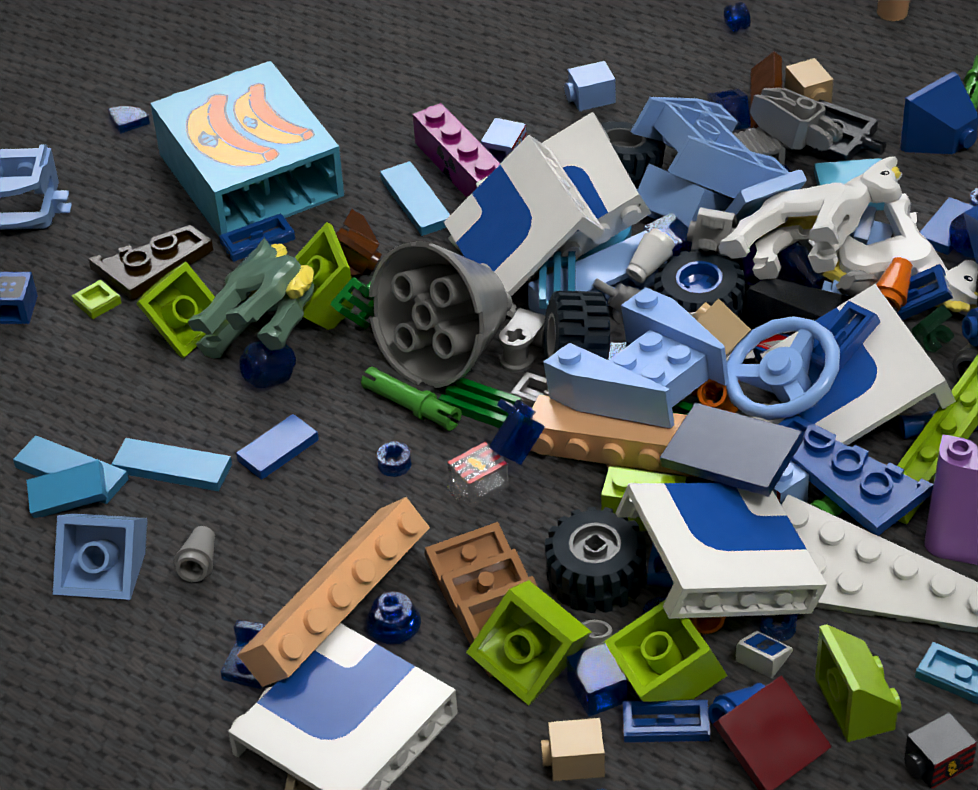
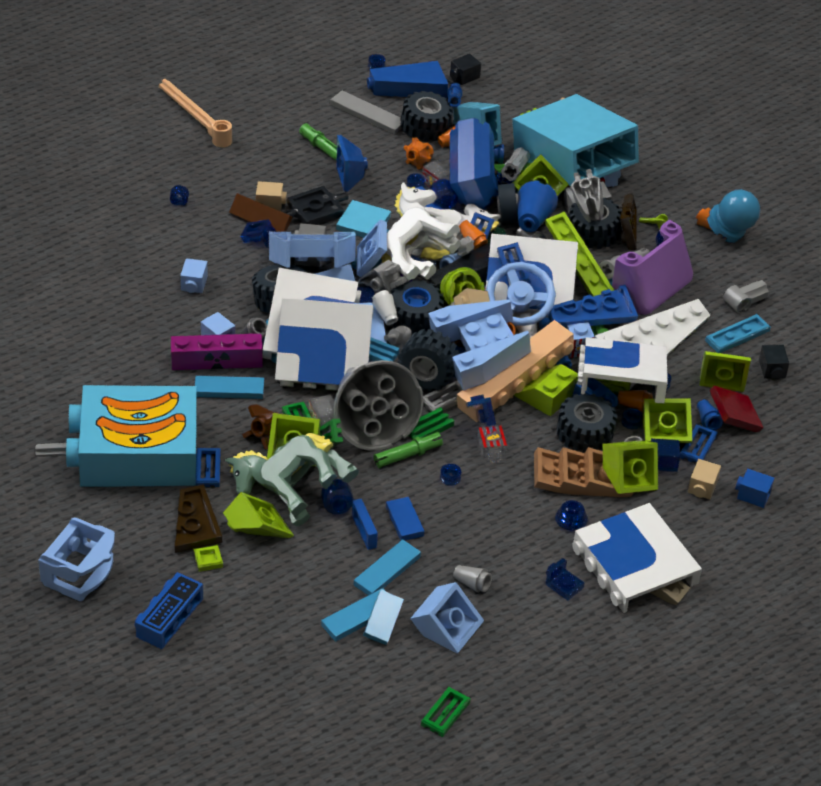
camera: 70 degrees left, 0 degrees up
(128, 118) = (29, 488): clear blue tile -> none
(231, 407) = (364, 524): none -> blue tile
(333, 592) = (553, 523): light nougat brick -> none
(732, 449) = (570, 333): tile -> none
(755, 302) = (459, 280): none -> lime cone
(762, 653) = (679, 392): white slope -> none
(794, 119) = (313, 209): light grey hinge -> none

